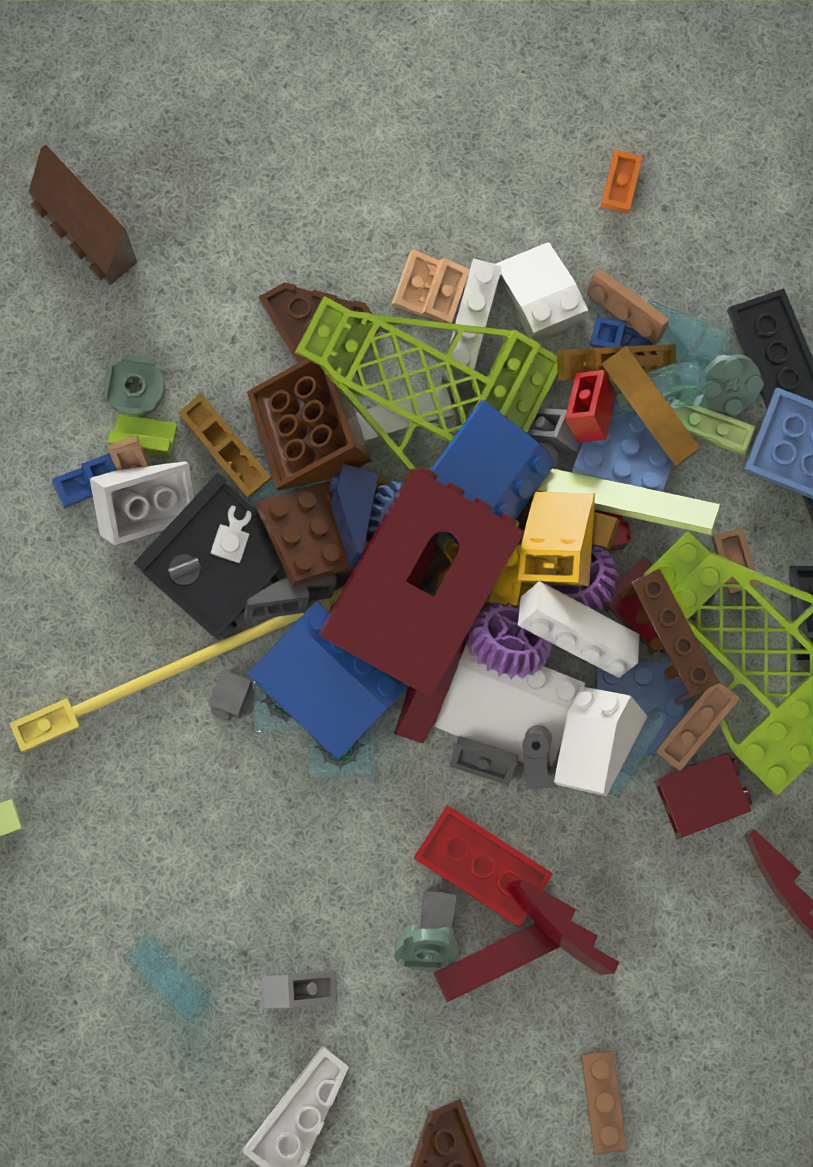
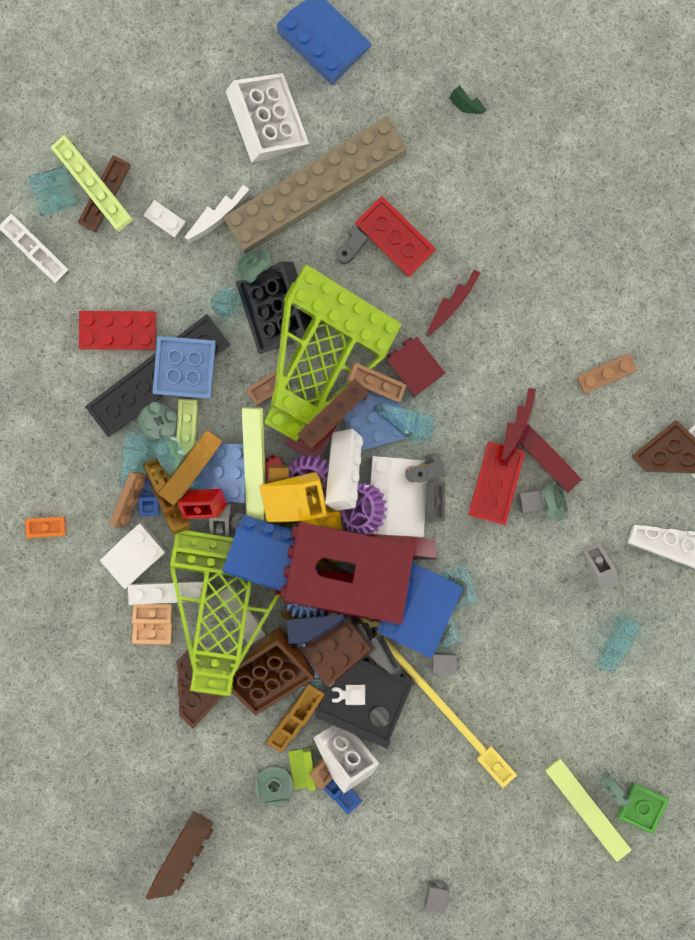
camera: 105 degrees left, 10 degrees up
(597, 739) = (406, 439): white slope -> none

